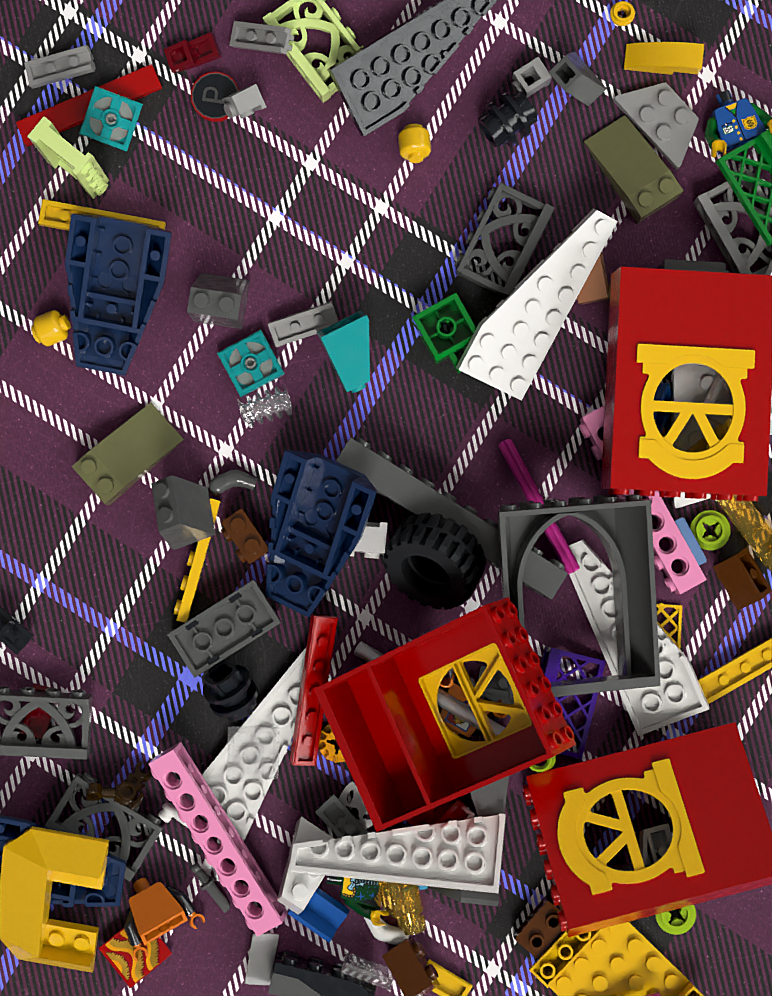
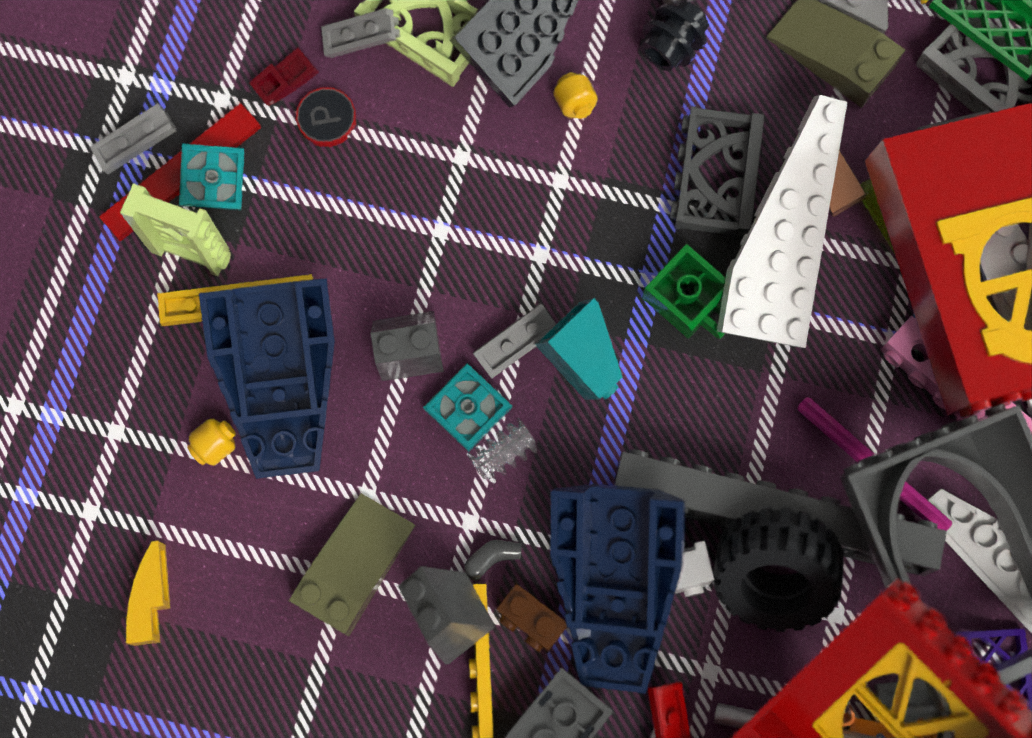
camera: 15 degrees left, 10 degrees down
(244, 102) = (363, 110): light grey brick -> none

